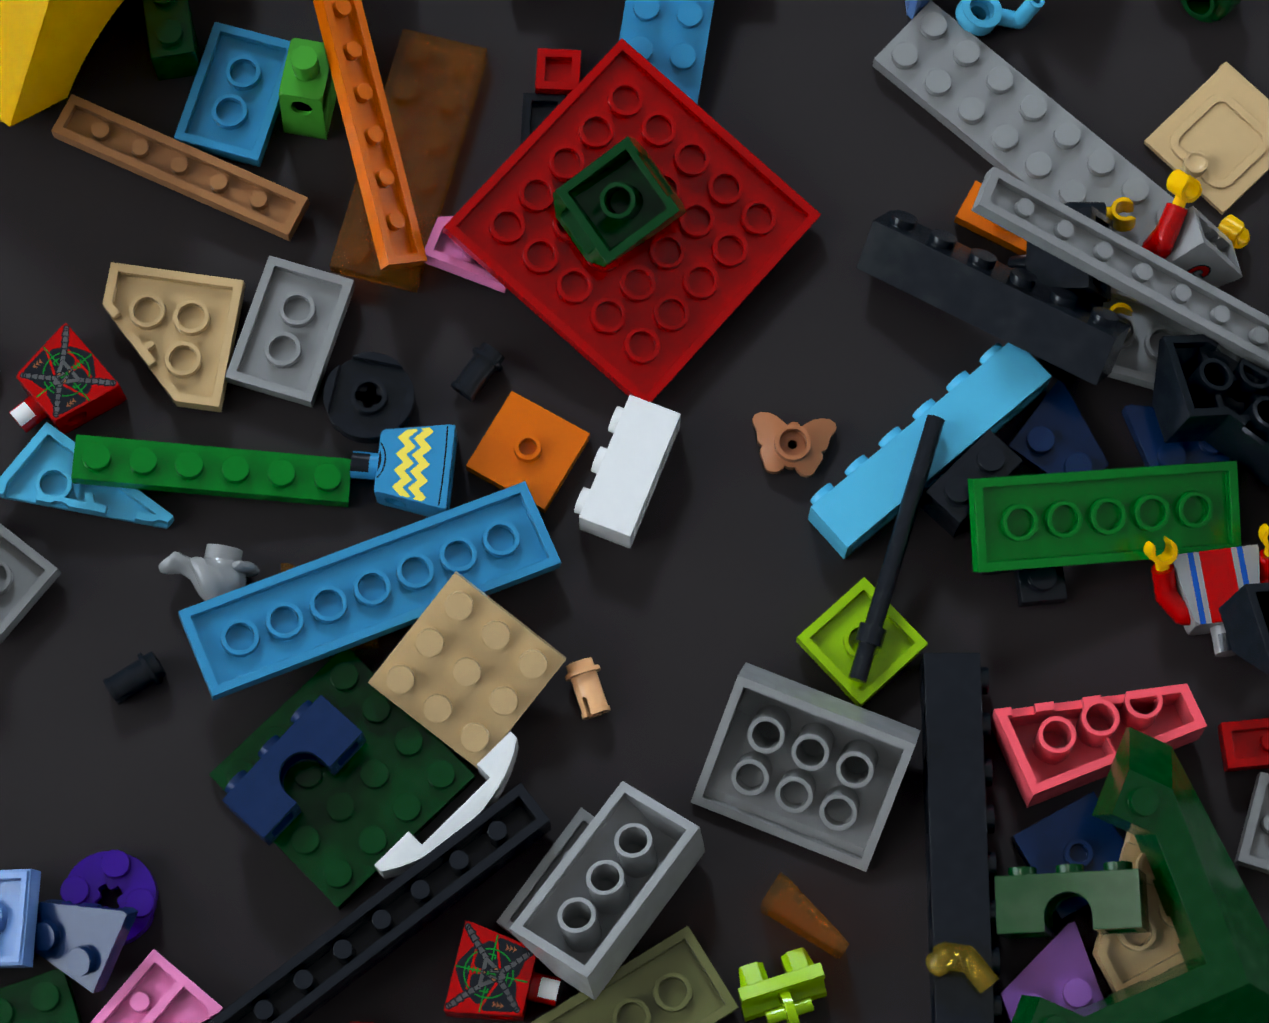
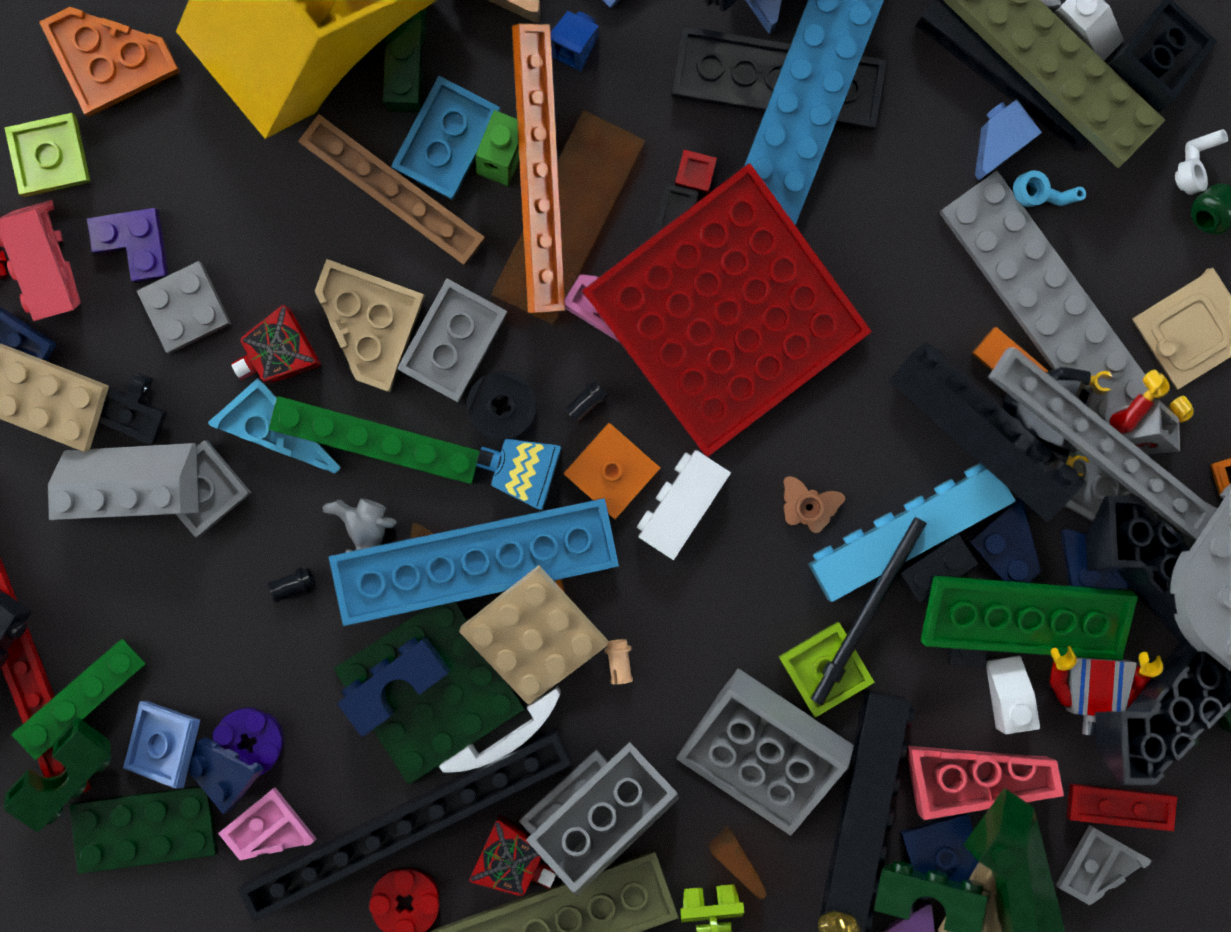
camera: 10 degrees right, 15 degrees up
(616, 203) = (718, 301): dark green slope -> none
(1111, 627) = (1012, 695): none -> white slope

